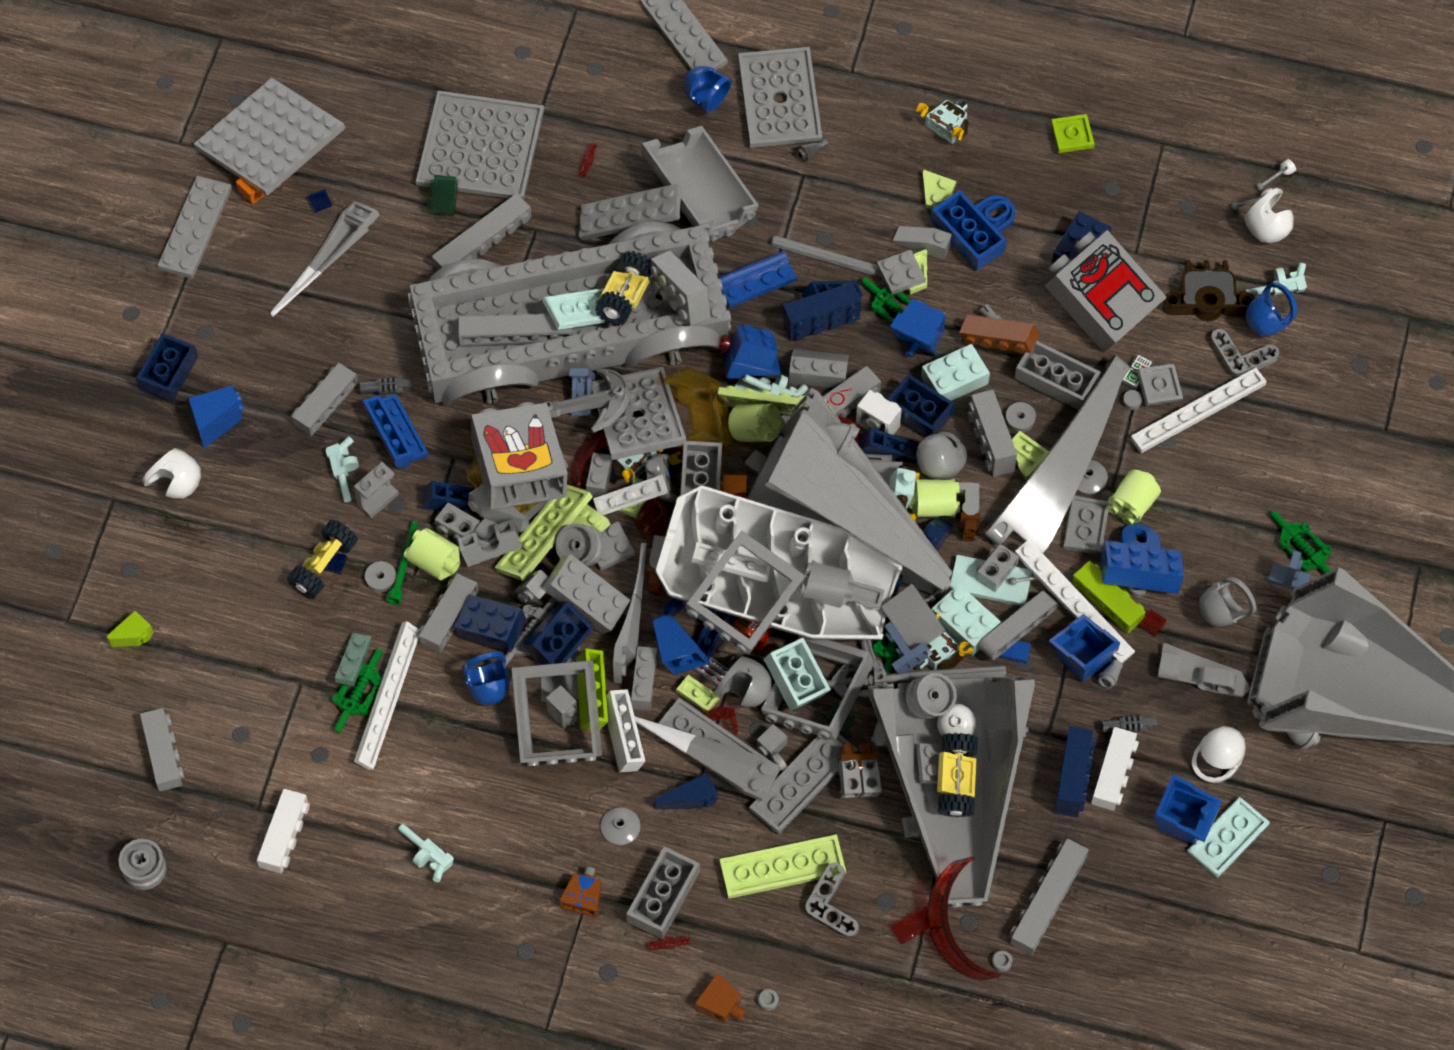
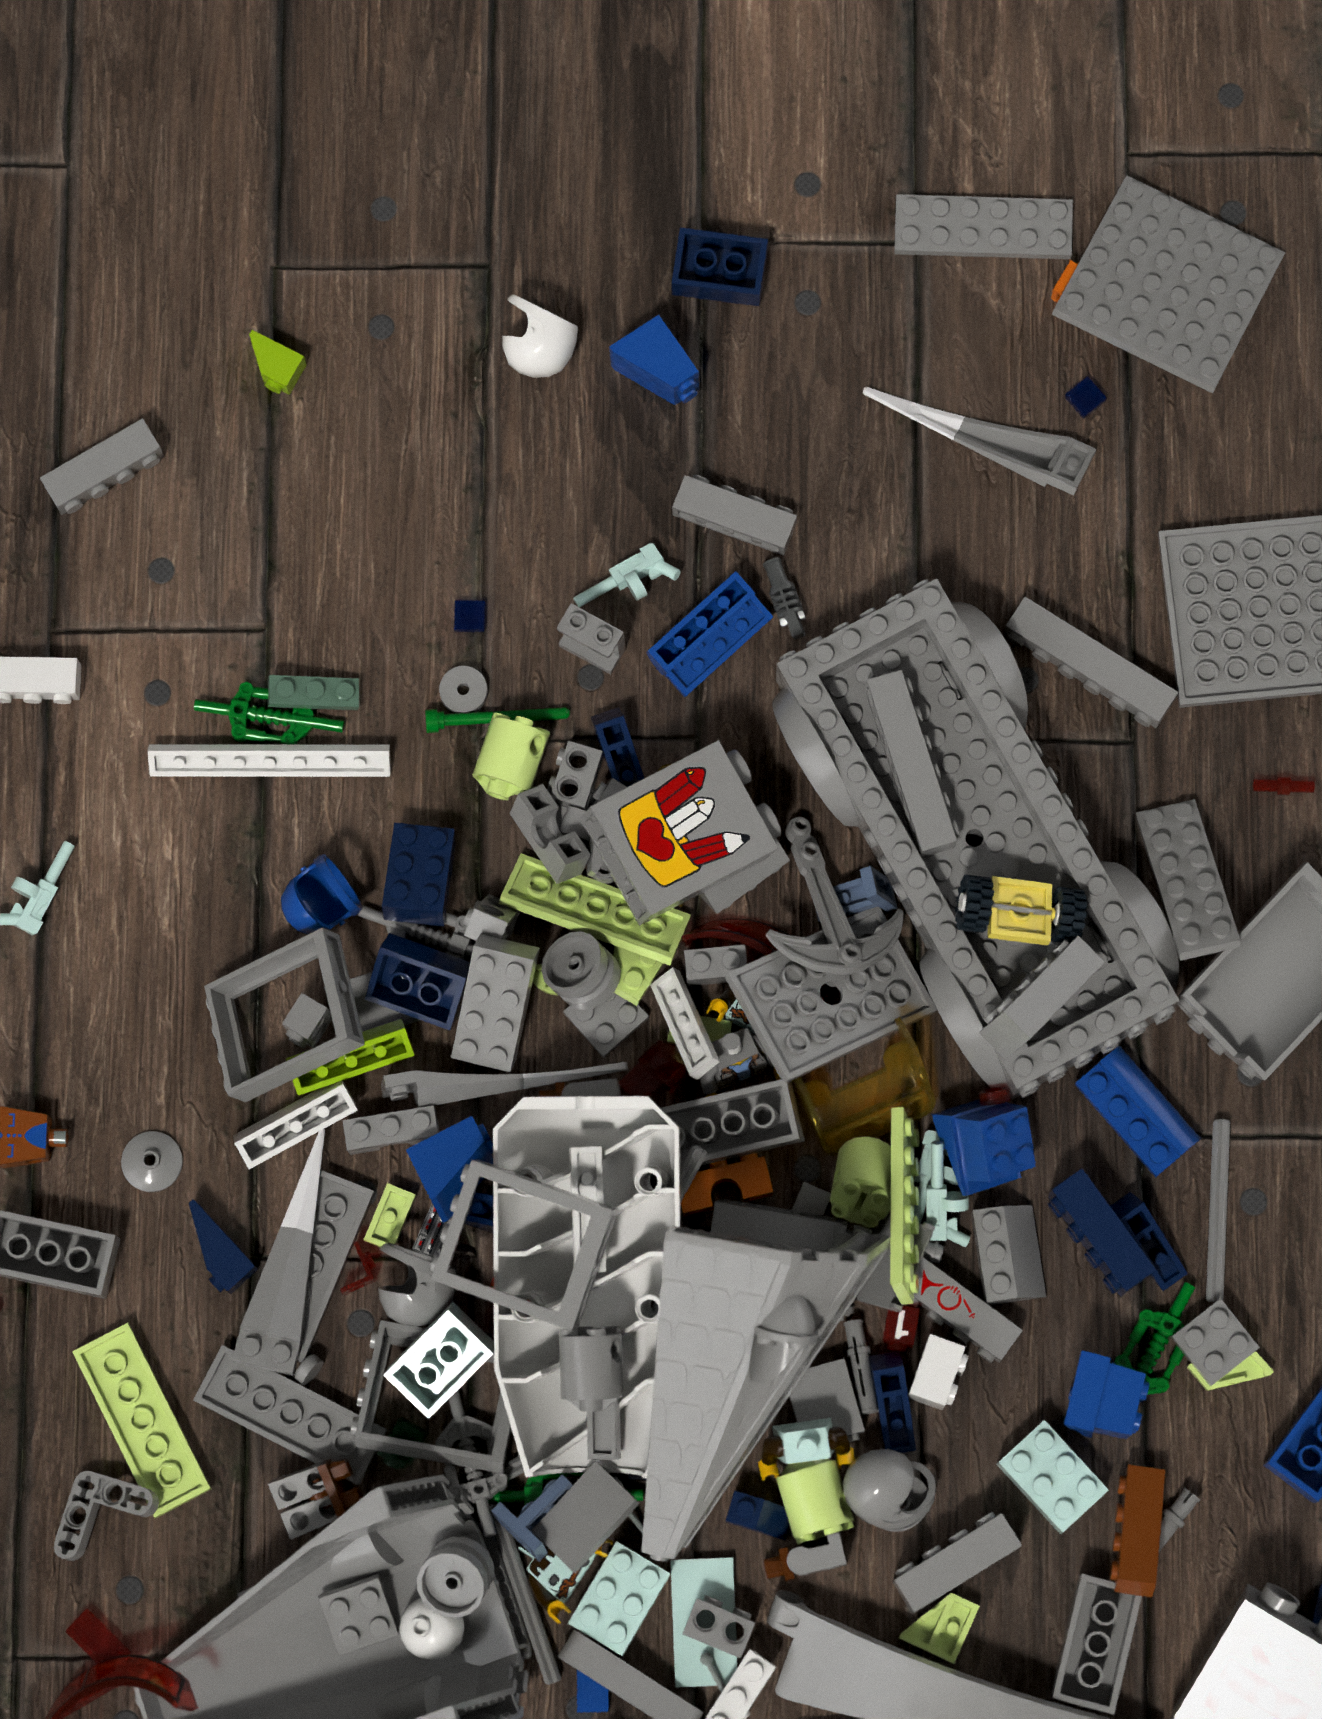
camera: 80 degrees right, 15 degrees up
(304, 578) = (460, 594): black plate -> none
(442, 619) = (425, 806): light grey brick -> none
(443, 195) = (1142, 581): clear green brick -> none
(574, 308) = (964, 842): light aqua tile -> none
(771, 741) = (336, 1350): light grey brick -> none
(920, 238) = (1291, 1362): light grey slope -> none
(922, 406) = (974, 1434): dark blue brick -> none
(957, 774) = (336, 1650): plate -> none
(1020, 409) = (996, 1601): light grey piece -> none

